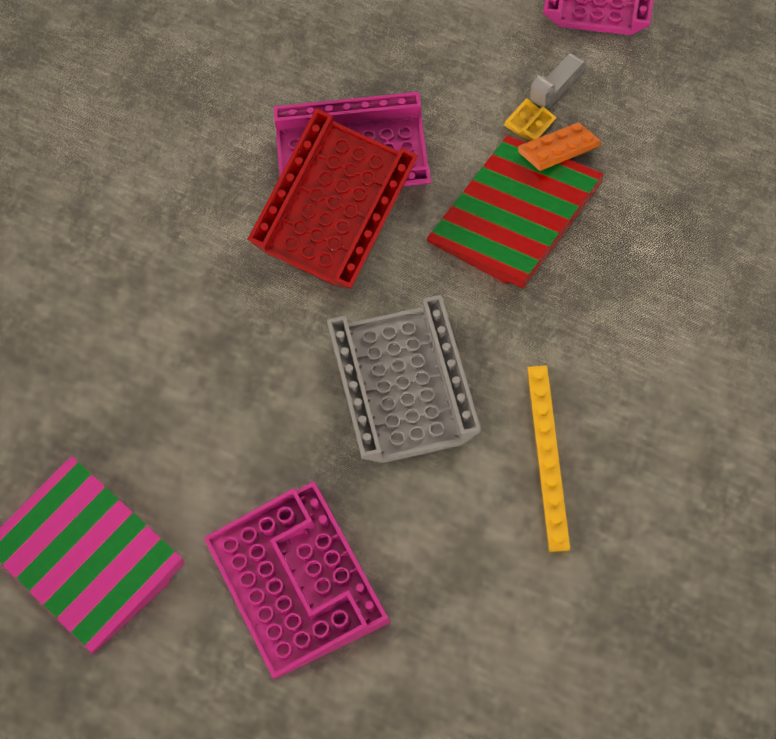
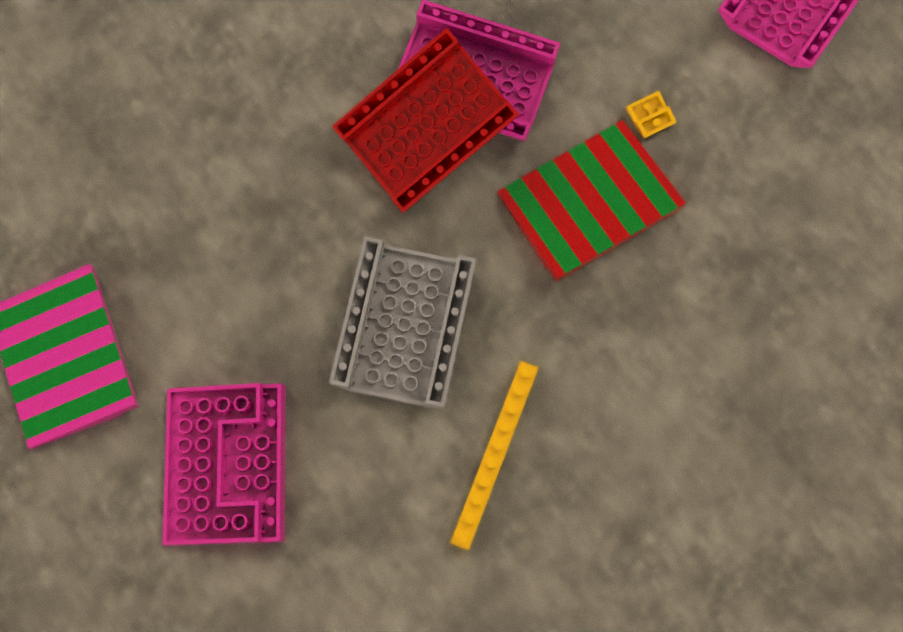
camera: 25 degrees right, 15 degrees up
(547, 90) = (682, 92): light grey beam -> none
(559, 146) = (662, 155): orange plate -> none

